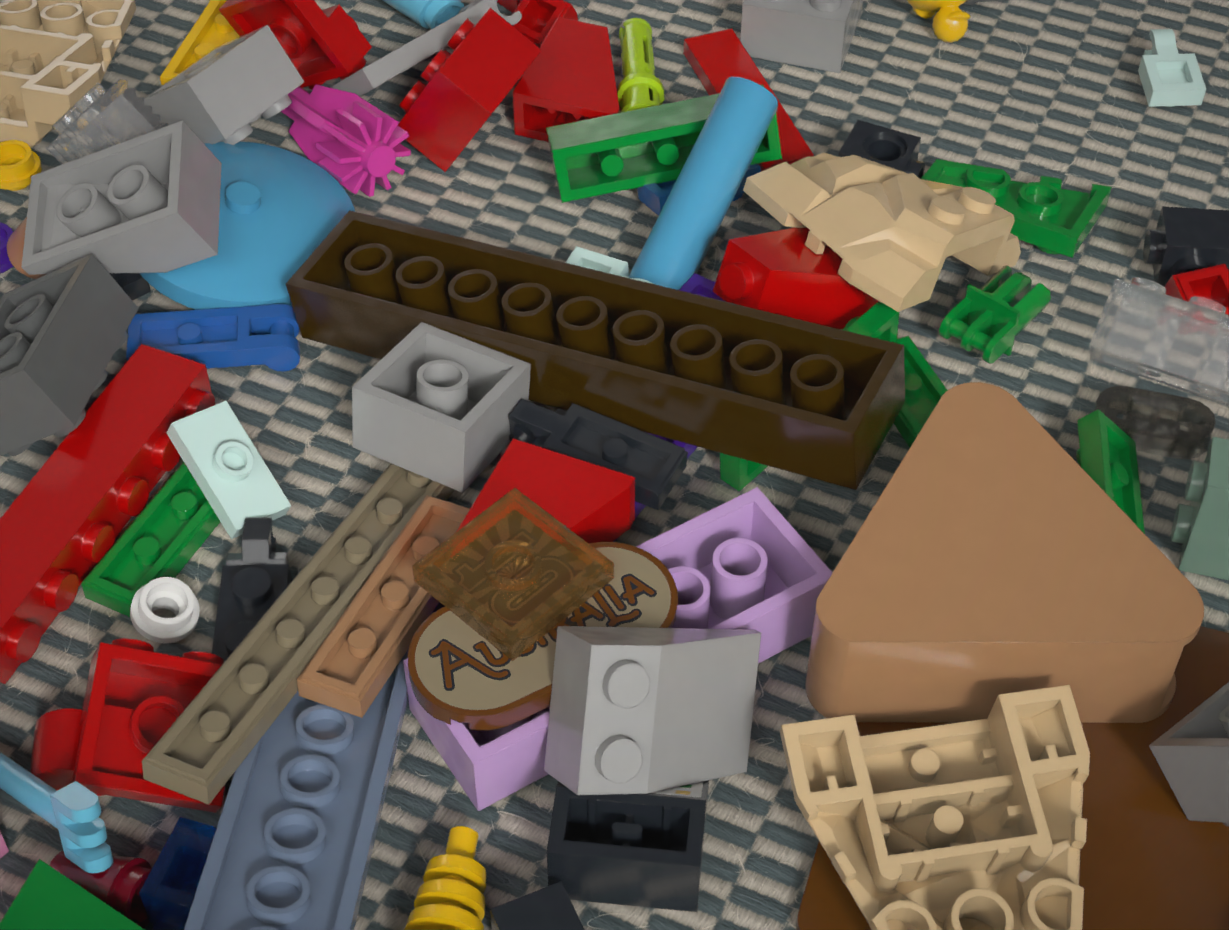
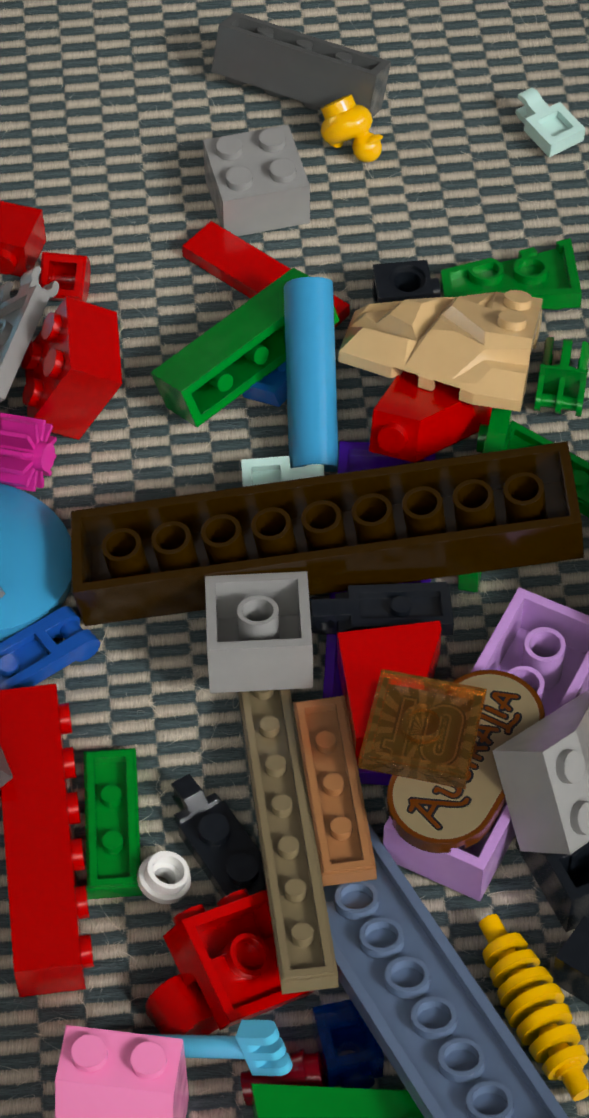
camera: 30 degrees left, 5 degrees up
(227, 467) = (130, 753): light aqua plate -> none
(566, 80) = (146, 323): red slope -> none
(640, 85) = (184, 307): lime pin -> none

